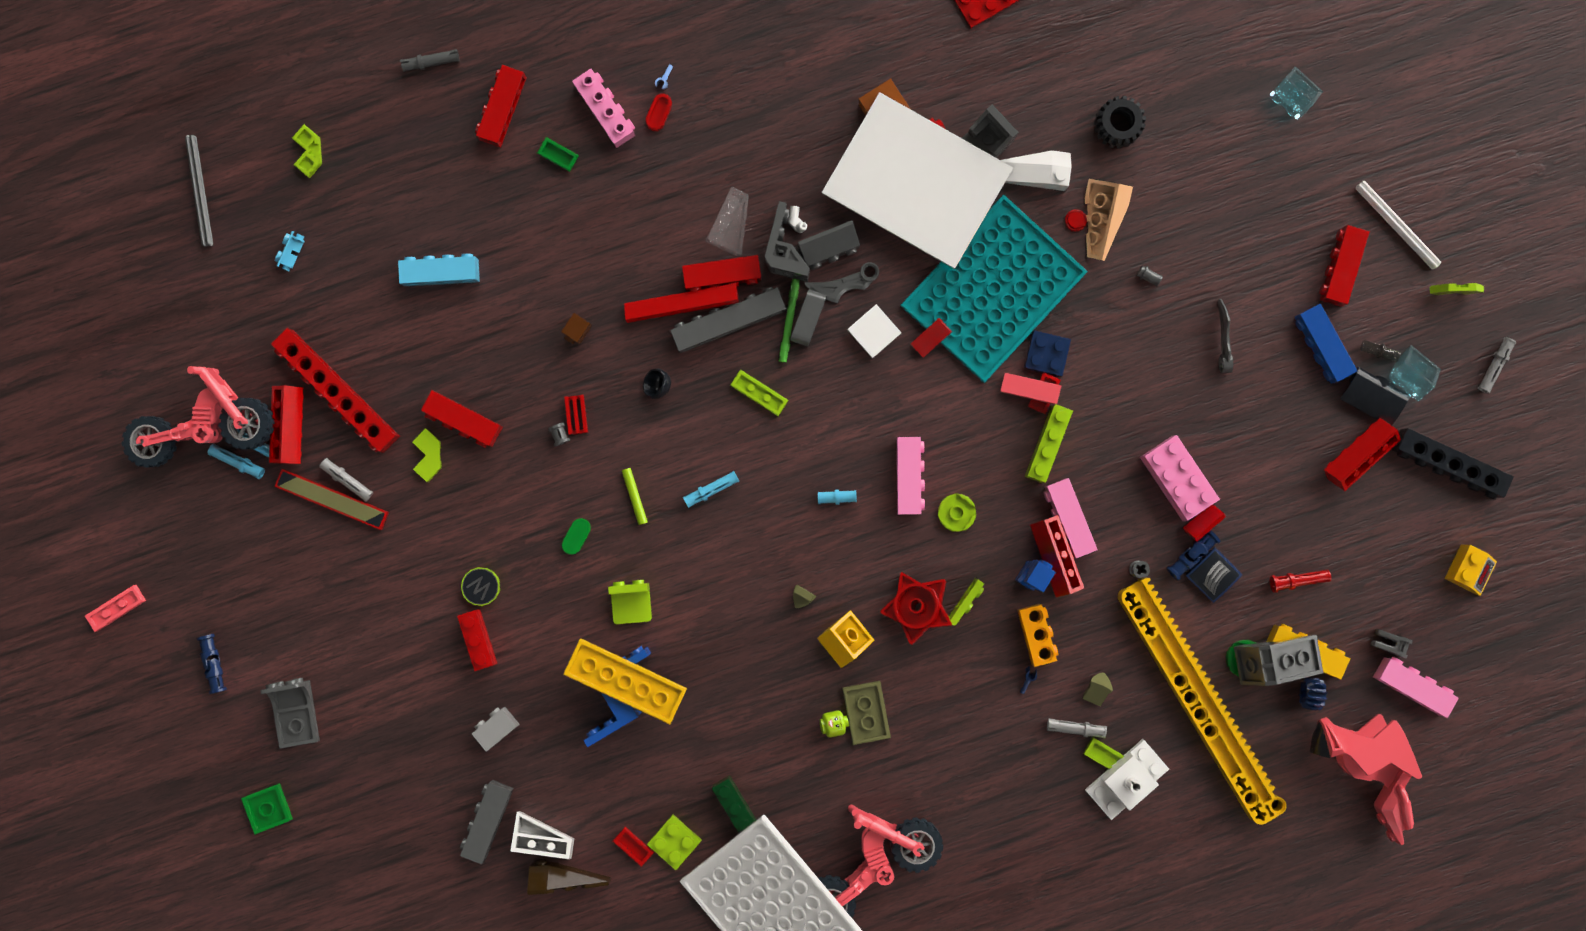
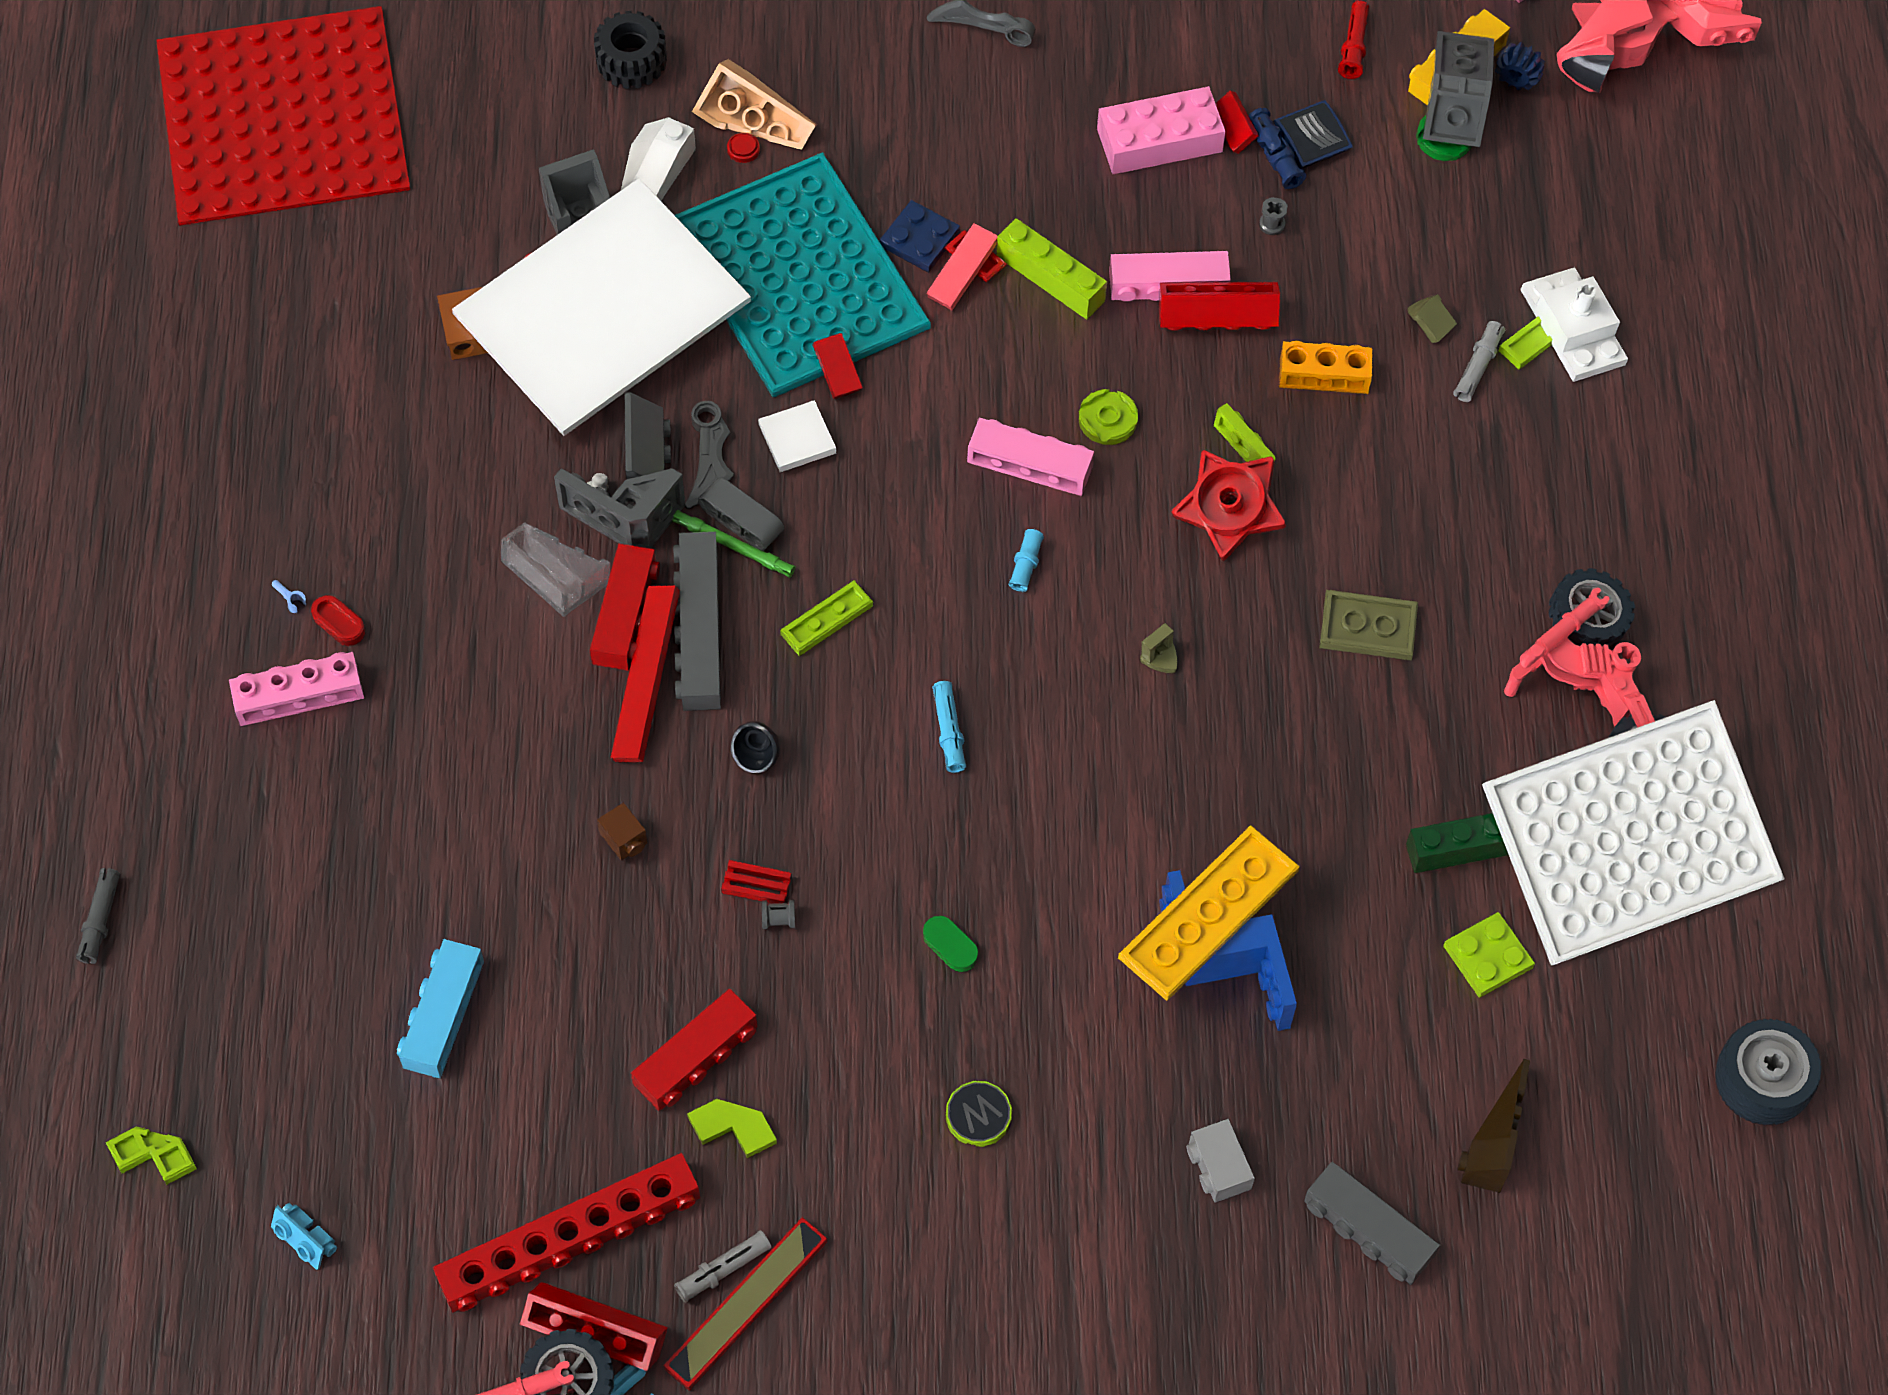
camera: 75 degrees left, 25 degrees down
(198, 190) = (135, 1351): axle -> none
(477, 639) = (1065, 1140): red brick -> none
(501, 105) = (222, 833): red brick -> none
(538, 838) = (1424, 1144): white wedge -> none
(557, 154) = (335, 778): green tile -> none
(630, 602) = (1083, 893): lime bracket -> none
(633, 846) = (1478, 1015): red tile -> none
(634, 496) = (918, 839): lime piece -> none
(833, 723) = (1371, 668): lime head -> none
(845, 639) = (1248, 614): yellow slope -> none
(1029, 677) = (1384, 395): dark blue hand -> none
(1036, 575) = (1237, 305): blue arch -> none
(1149, 275) = (854, 87): dark grey pin -> none
(1224, 741) = (1487, 201): yellow gear -> none

